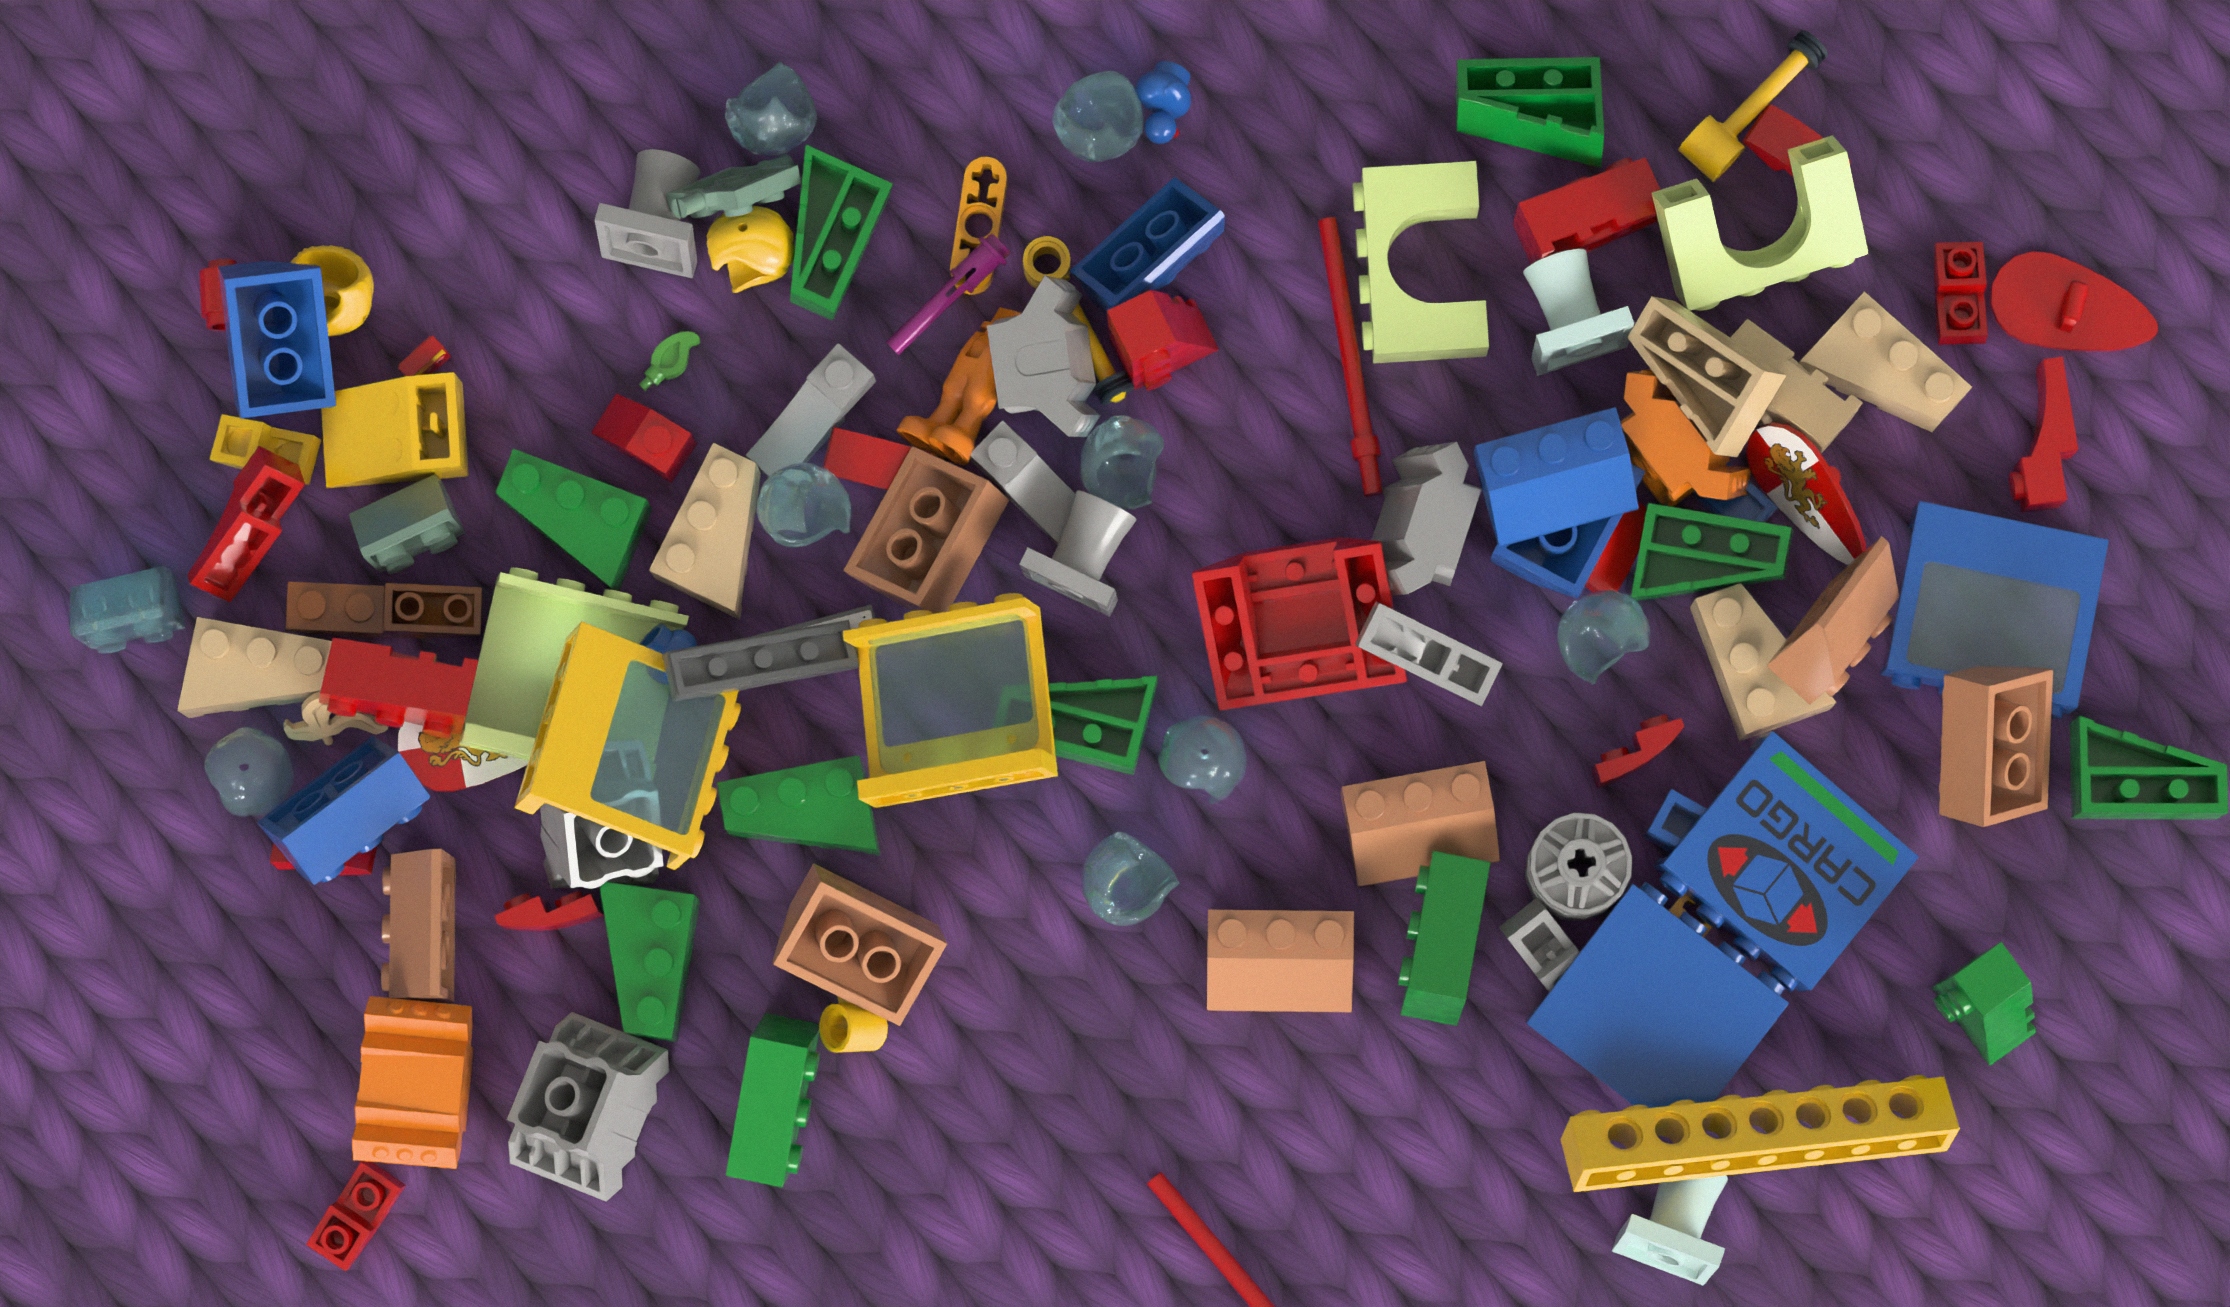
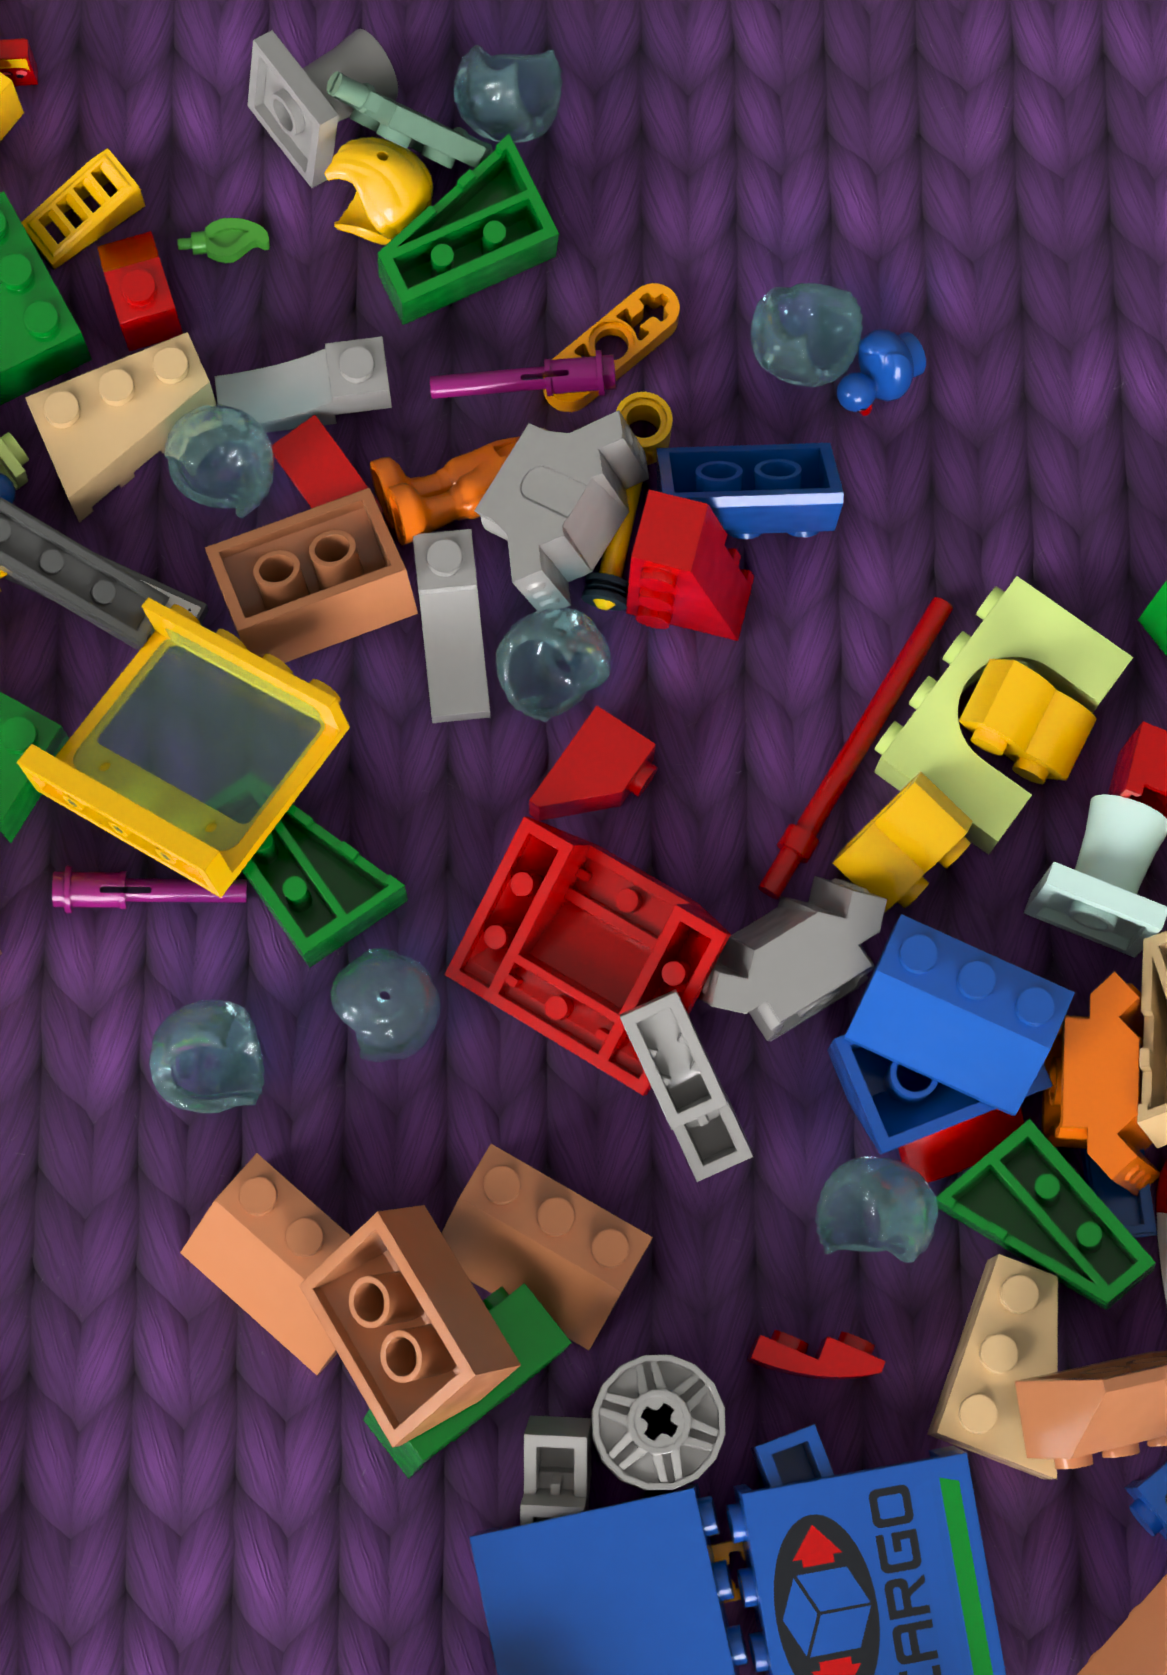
camera: 30 degrees right, 5 degrees down
(552, 375) = (85, 182): none -> yellow slope
(957, 843) = (86, 890): none -> magenta pin
(1082, 553) = (439, 714): light grey plant -> none
(1205, 505) = (596, 769): none -> red slope
(1389, 929) = (408, 1323): none -> nougat slope
(1433, 395) = (905, 843): none -> yellow brick
(1444, 256) = (1027, 721): none -> yellow brick

